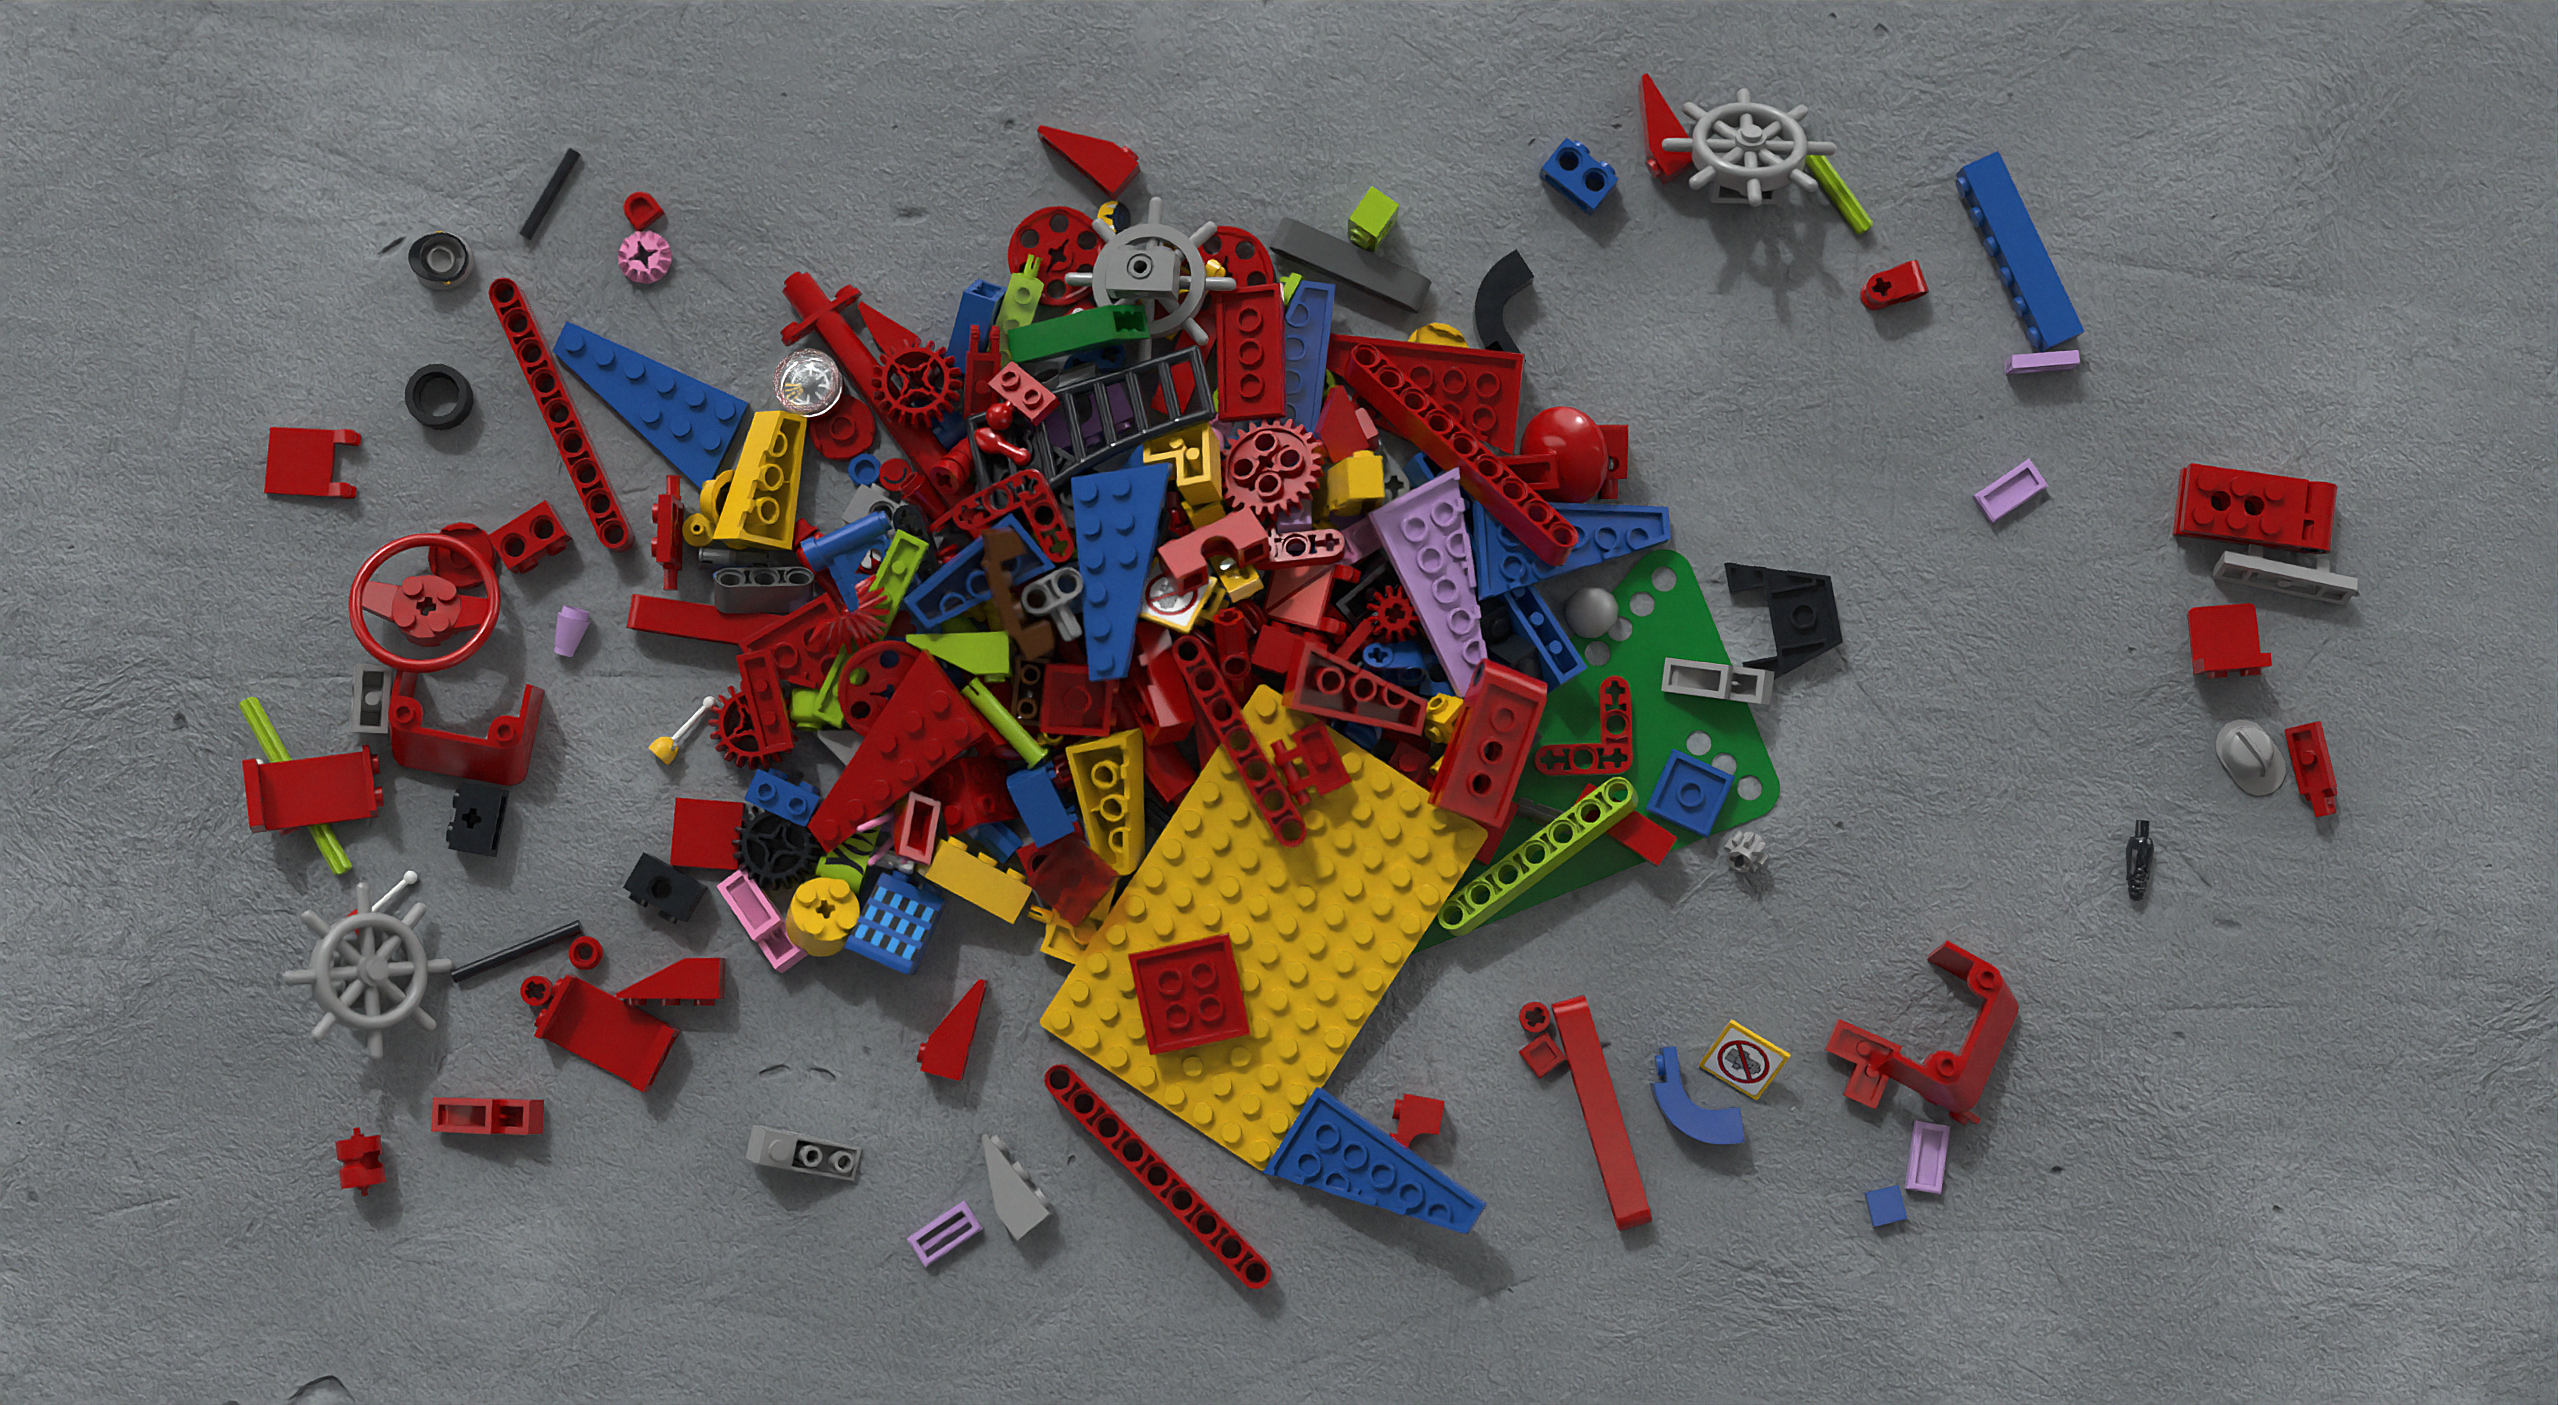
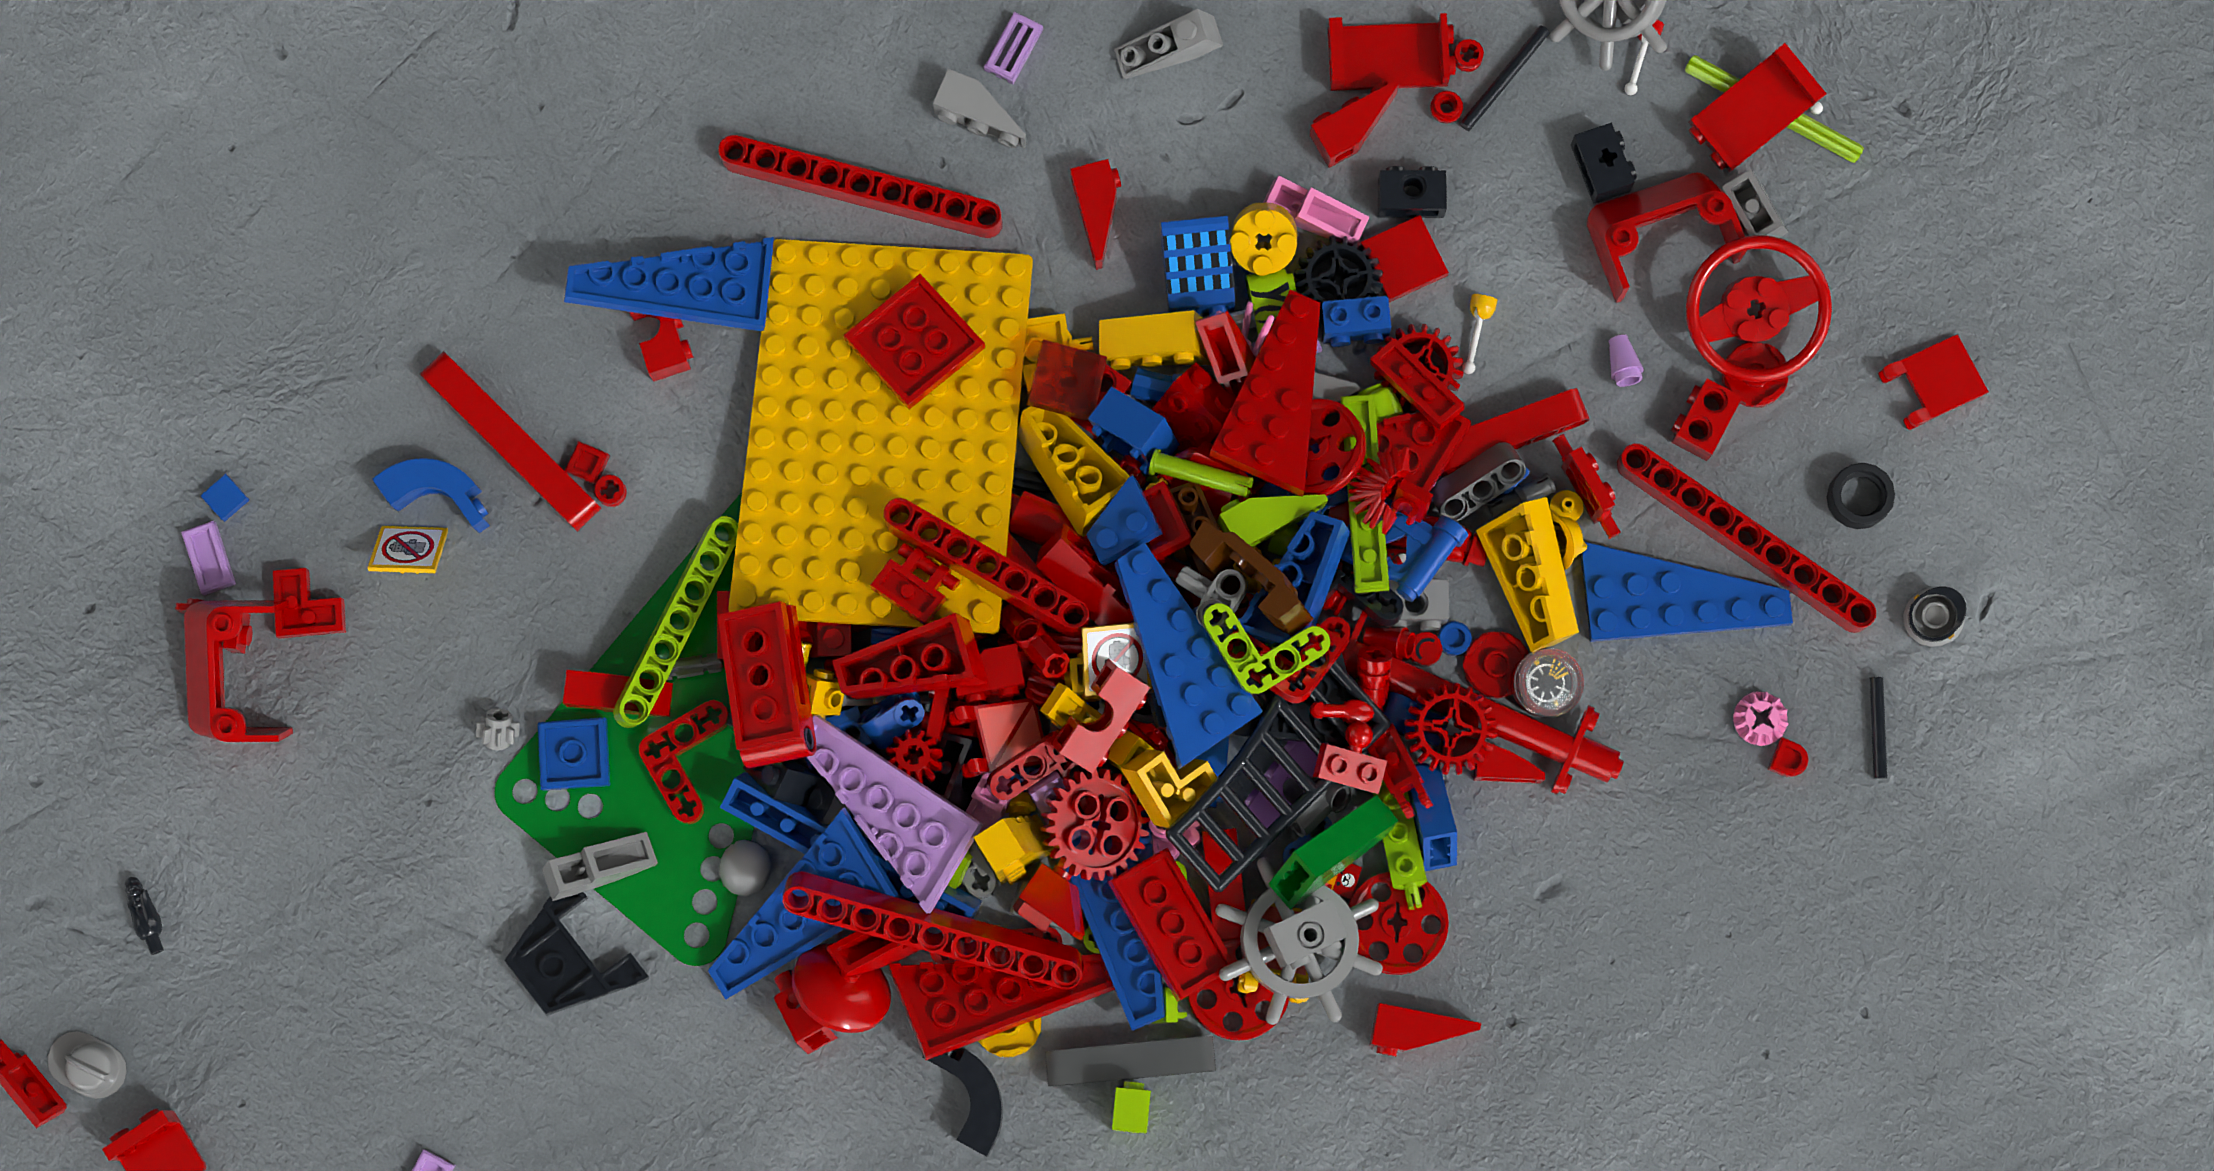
camera: 155 degrees right, 5 degrees down
(833, 595) = (1411, 501): none -> red tile
(1055, 522) = (1252, 658): none -> lime beam
(1097, 712) = (1123, 524): none -> blue wing
(1115, 215) = (1367, 987): tile -> none

